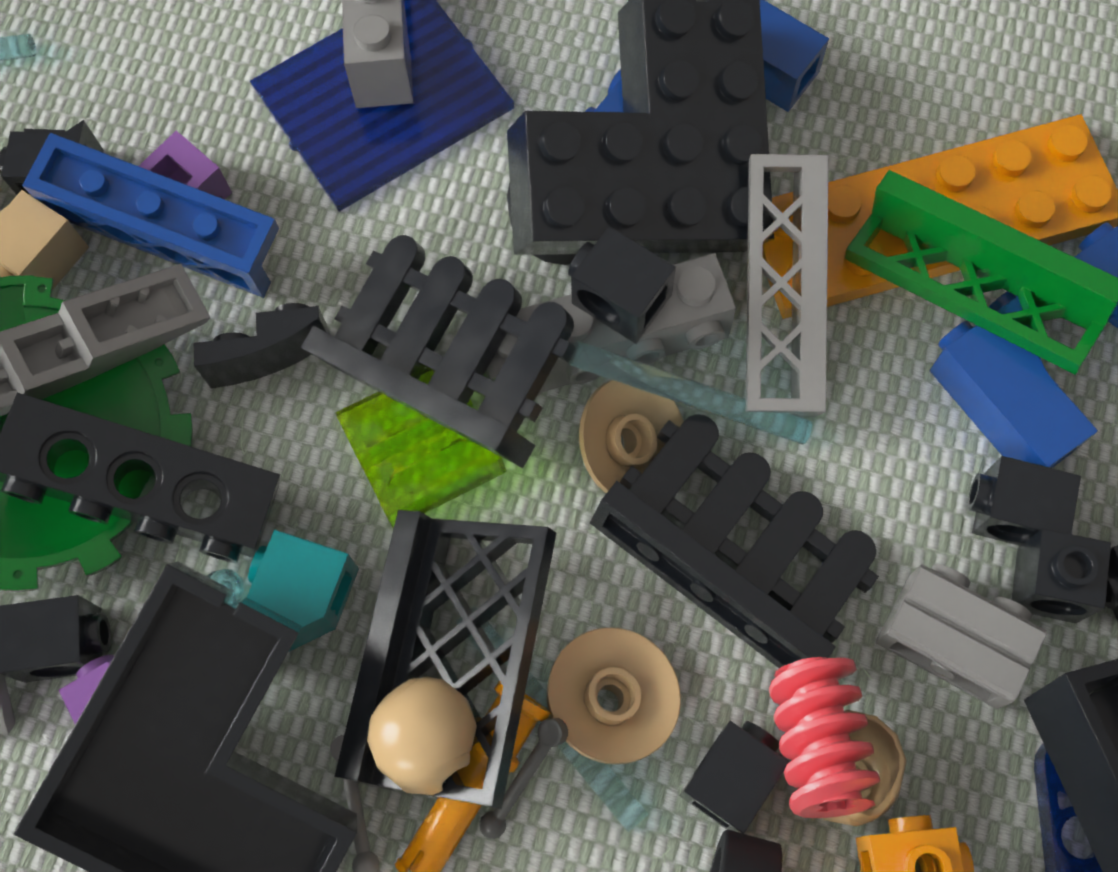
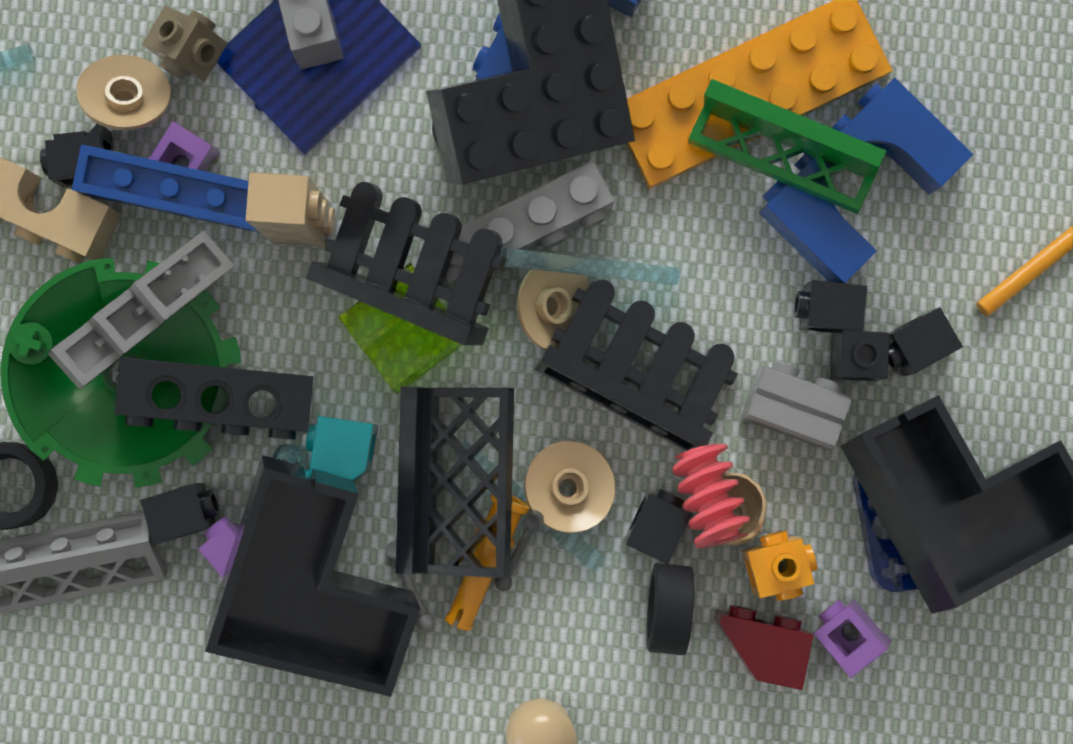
camera: 15 degrees left, 15 degrees up
(127, 97) = (123, 78): none -> tan dish
(218, 52) = (185, 43): none -> dark tan brick
(241, 358) = (286, 270): black slope -> none
(293, 243) = (289, 209): none -> tan brick
(422, 734) = (449, 539): tan hair -> none
(620, 283) = (529, 204): black brick -> none
(808, 287) = (664, 174): light grey fence -> none

